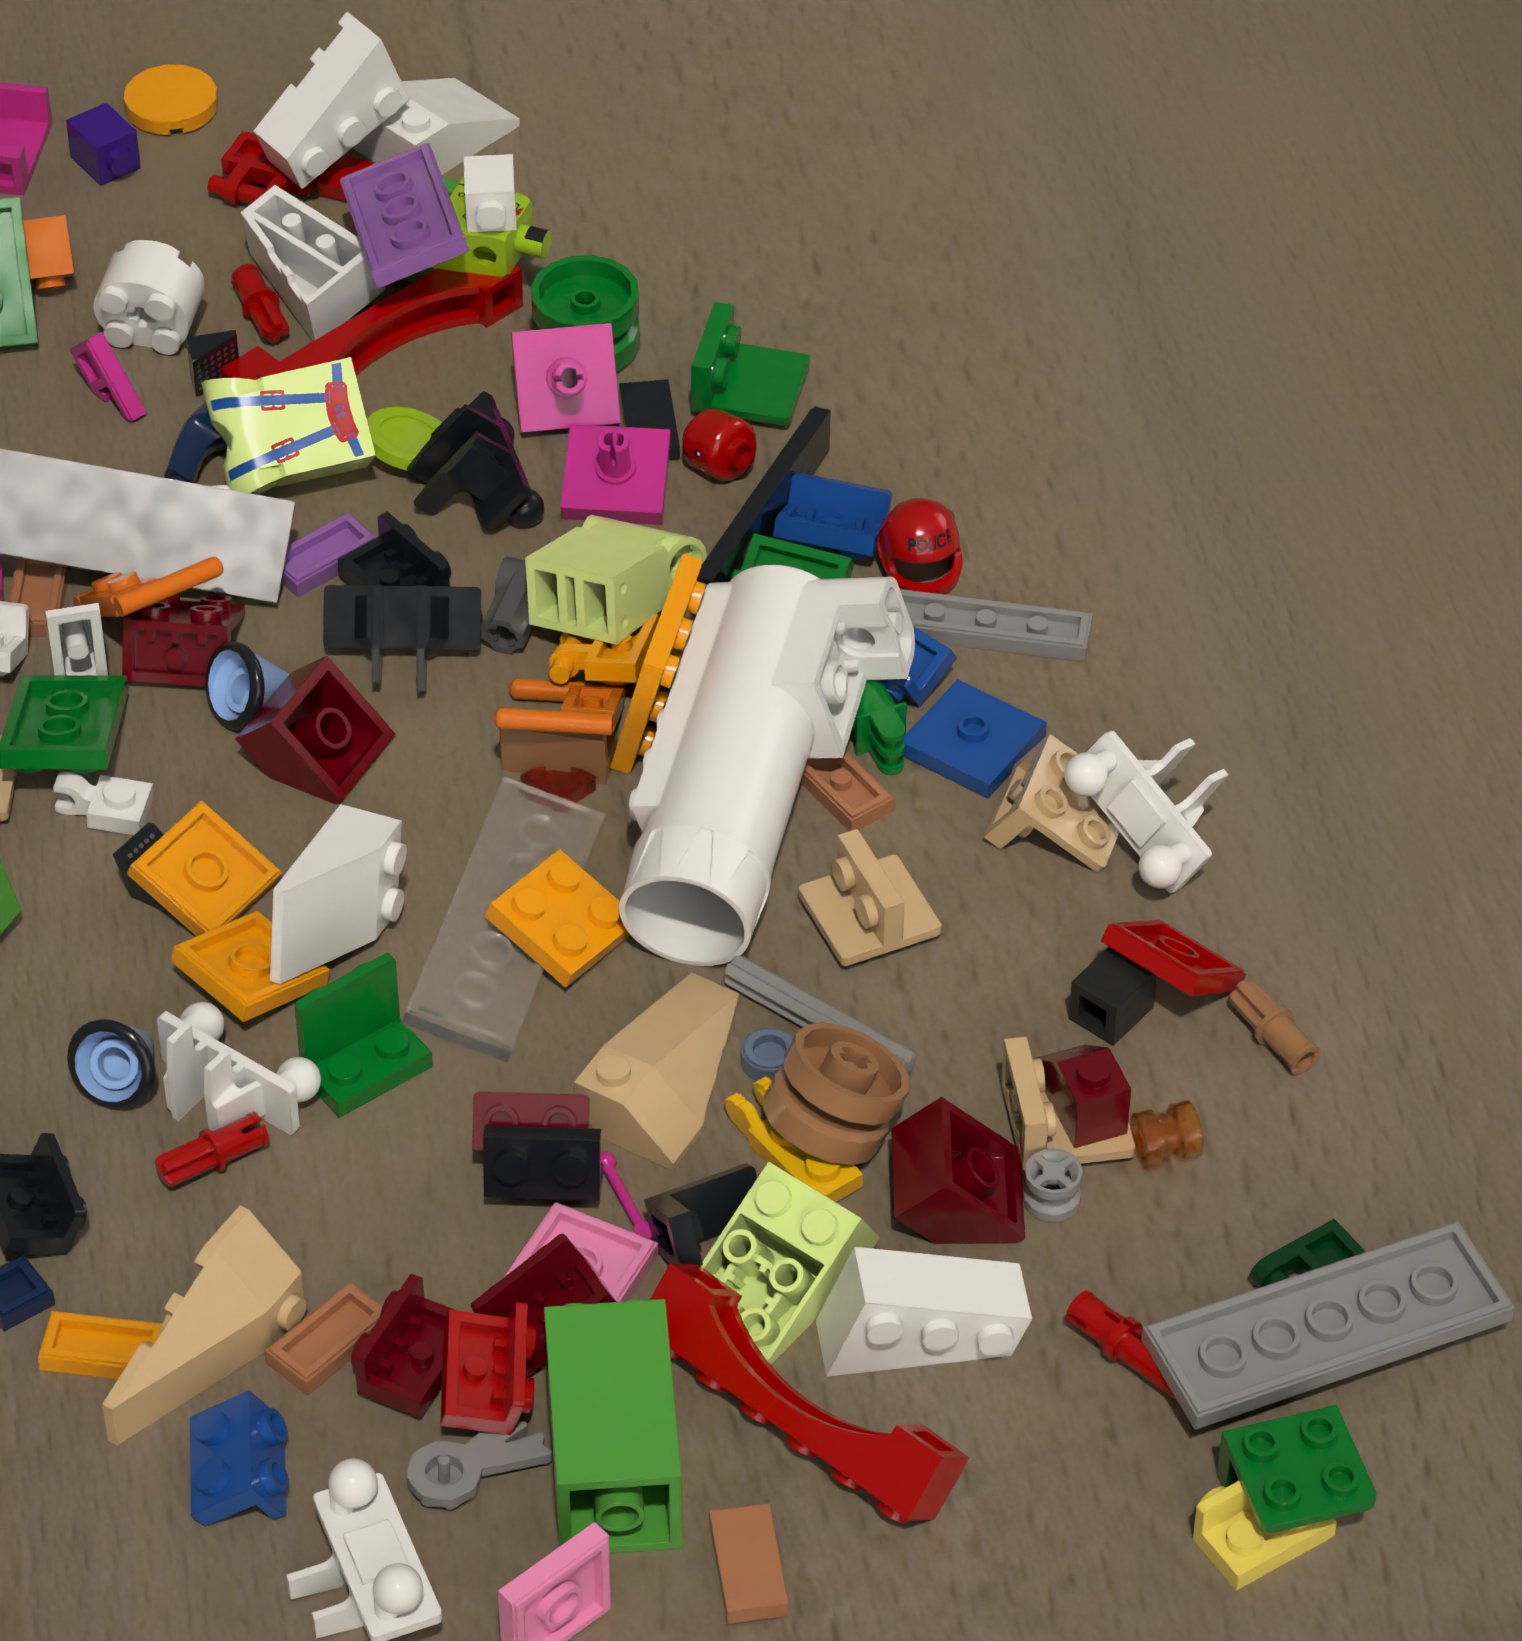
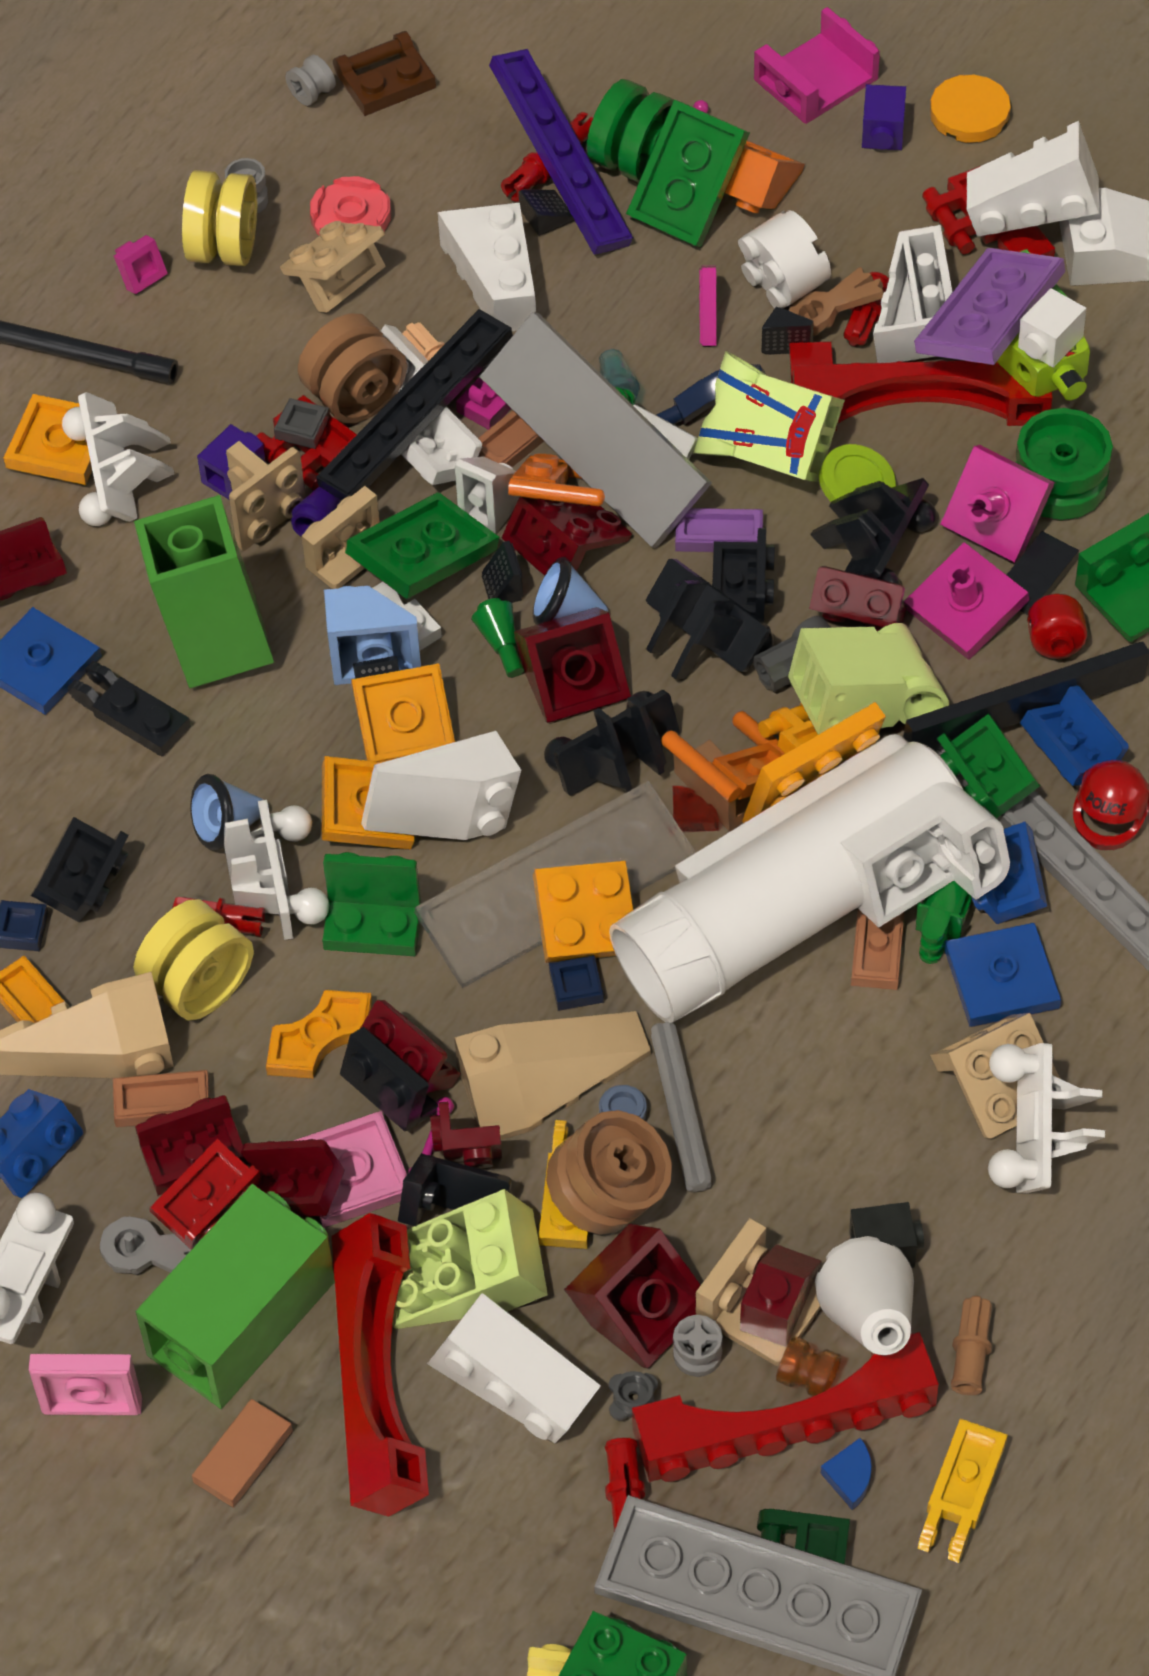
camera: 45 degrees right, 10 degrees up
(95, 813) = (367, 627): none -> light blue slope
(165, 705) = (503, 575): none -> black slope
(206, 749) = (496, 623): none -> green cone
(236, 294) = (851, 292): none -> medium nougat piece
(260, 1184) = (194, 959): none -> light yellow wheel
(414, 1202) = (302, 1045): none -> light orange tile
(443, 768) = (614, 743): none -> black piece
(527, 519) = (857, 597): none -> dark red bracket
(610, 986) = (576, 983): none -> dark blue tile
(662, 1162) = (469, 1145): none -> dark red bracket
(867, 903) = (795, 1049): tan bracket -> none
(1044, 1252) = (628, 1383): none -> dark grey plate
(1127, 1258) = (688, 1438): none -> red arch
(1172, 1029) = (868, 1293): none -> white cone
(1173, 957) = (946, 1243): red tile -> none
(1287, 1192) = (849, 1473): none -> blue tile
(1389, 1134) = (963, 1484): none -> yellow hinge

